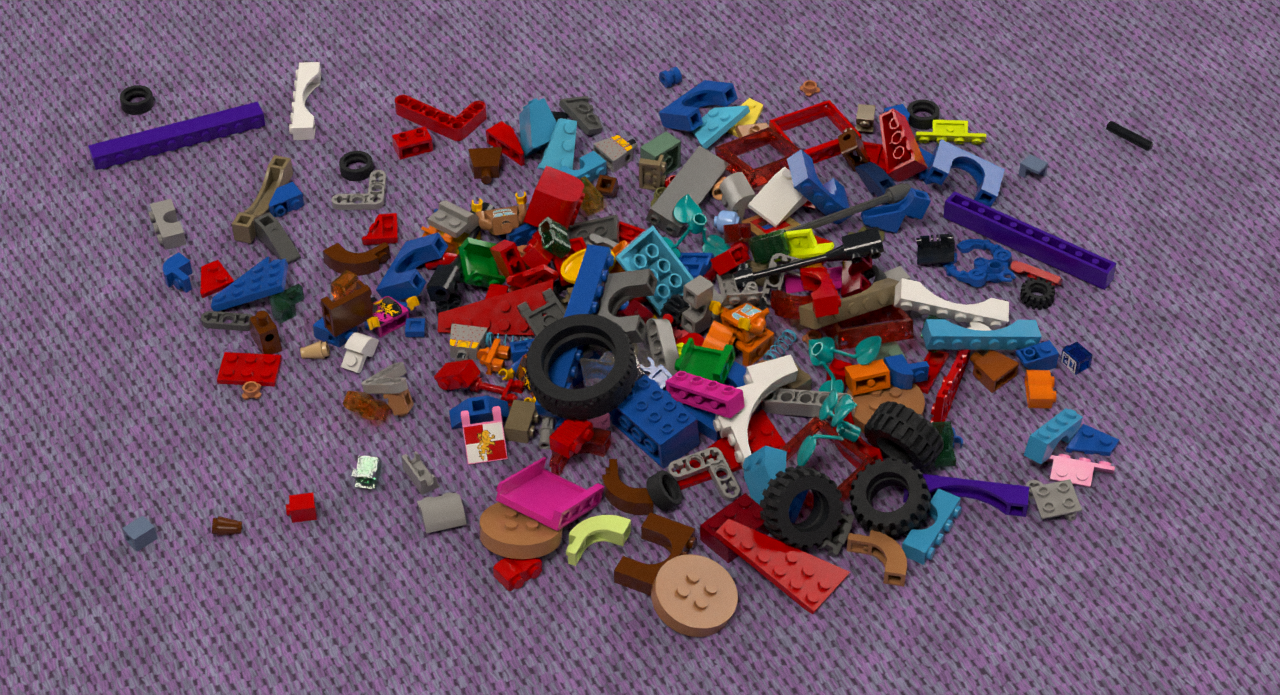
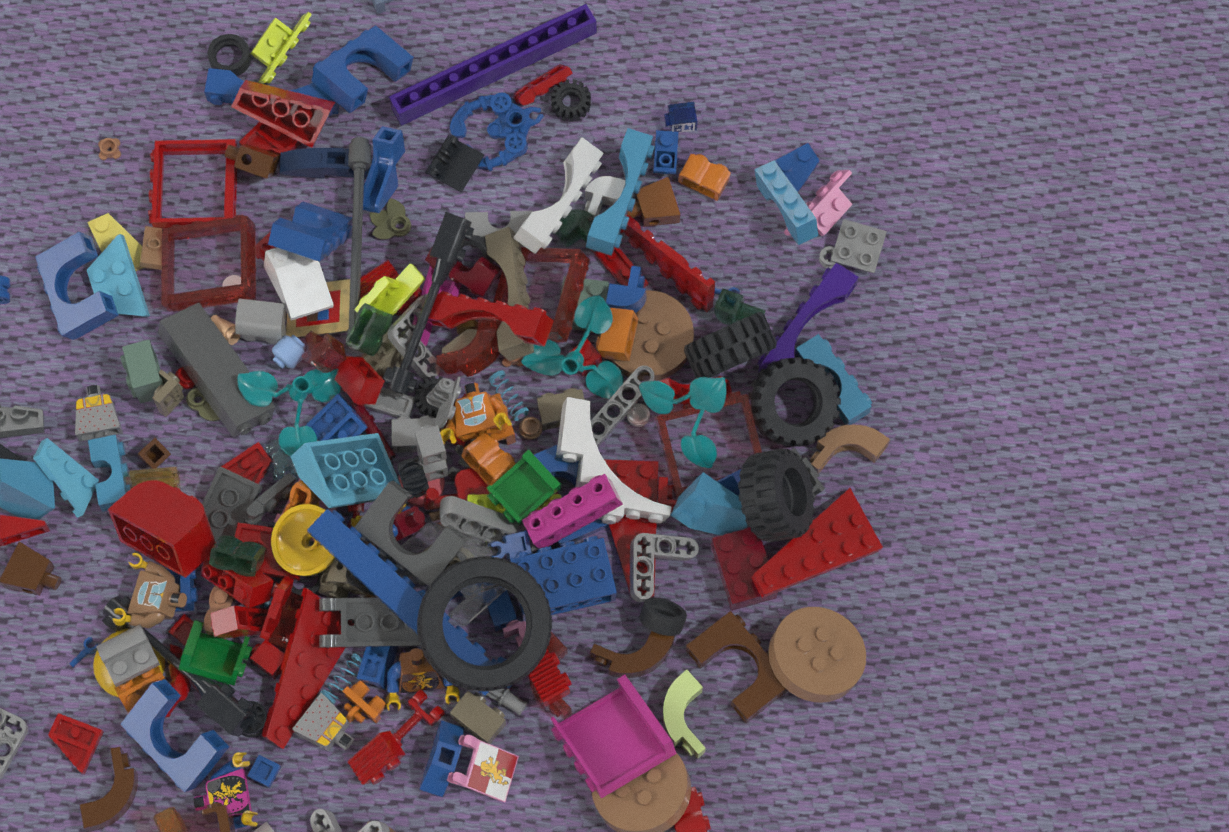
camera: 65 degrees left, 25 degrees up
(865, 118) = (203, 119): dark tan brick -> none

